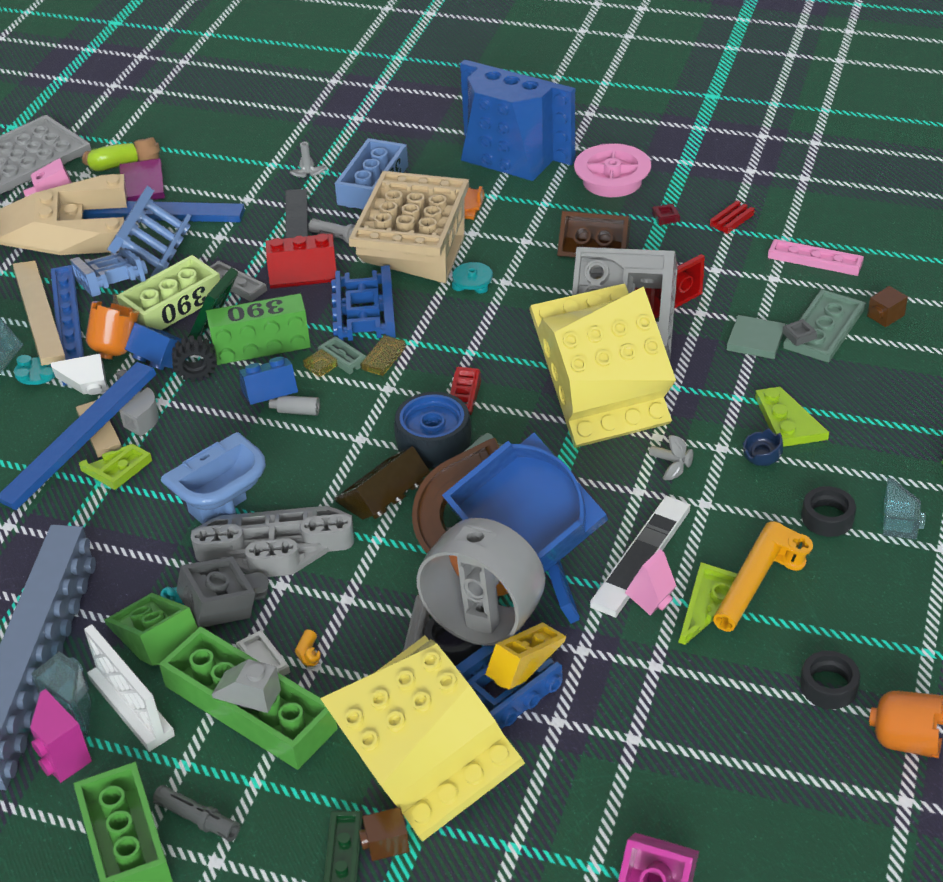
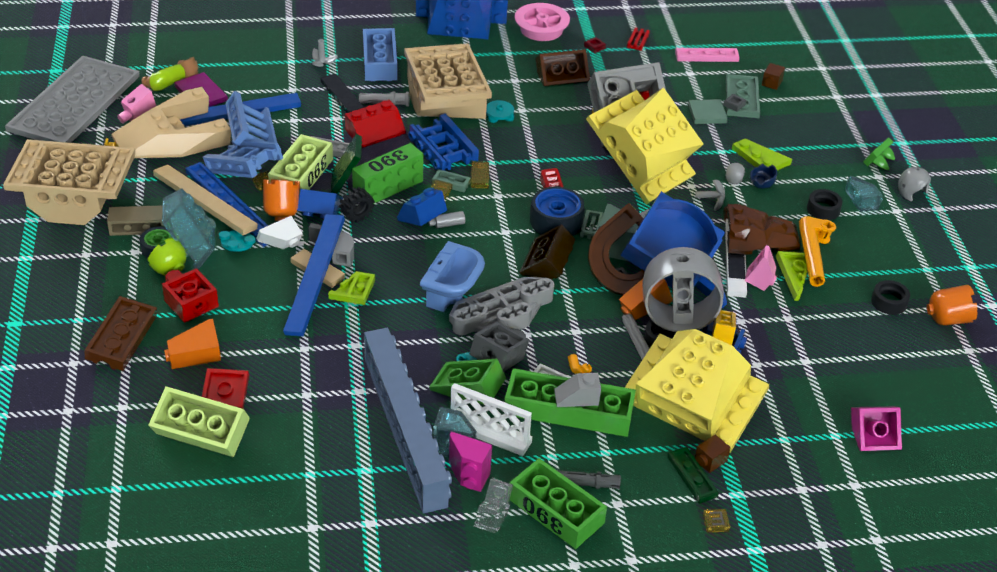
camera: 30 degrees left, 0 degrees up
(44, 816) = (495, 507): none -> clear brick
(694, 523) = (755, 229): none -> reddish brown wedge
(725, 433) = (735, 173): none -> light grey piece

